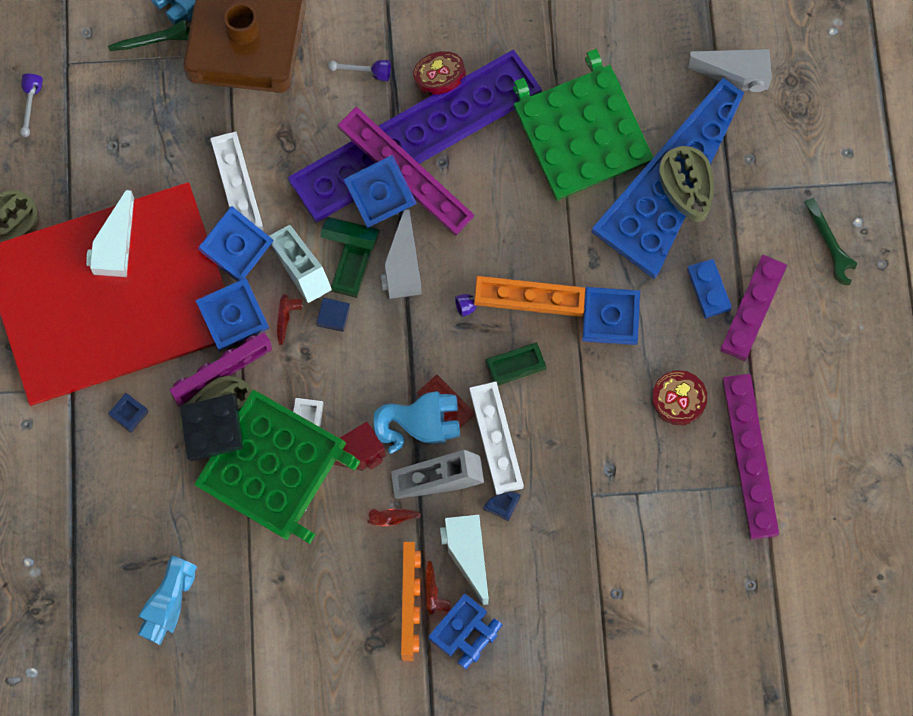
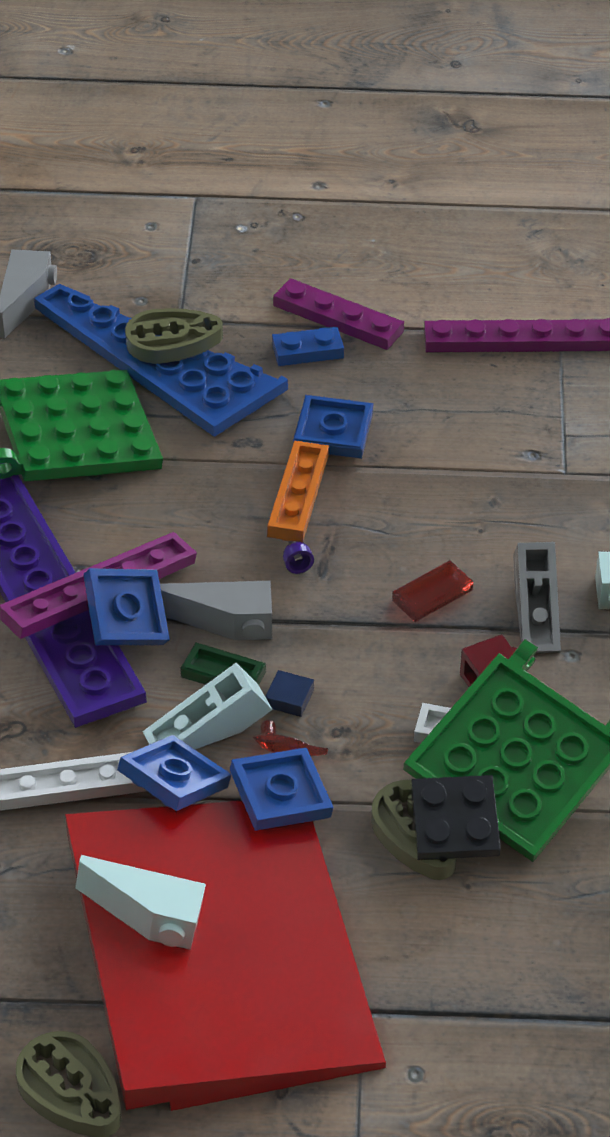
camera: 85 degrees left, 25 degrees down
(128, 412) = (411, 936): dark blue tile -> none
(228, 364) = (364, 820): magenta plate -> none
(350, 233) = (173, 660): dark green tile -> none
(391, 516) = (587, 655): clear red bar -> none
(421, 420) = (461, 601): dark azure hips -> none
(496, 438) = (481, 541): white plate -> none
(503, 505) = (576, 548): dark blue tile -> none
(515, 364) = (385, 521): dark green tile -> none
(679, 397) = (446, 383): tile -> none
(840, 259) = (290, 241): dark green piece -> none

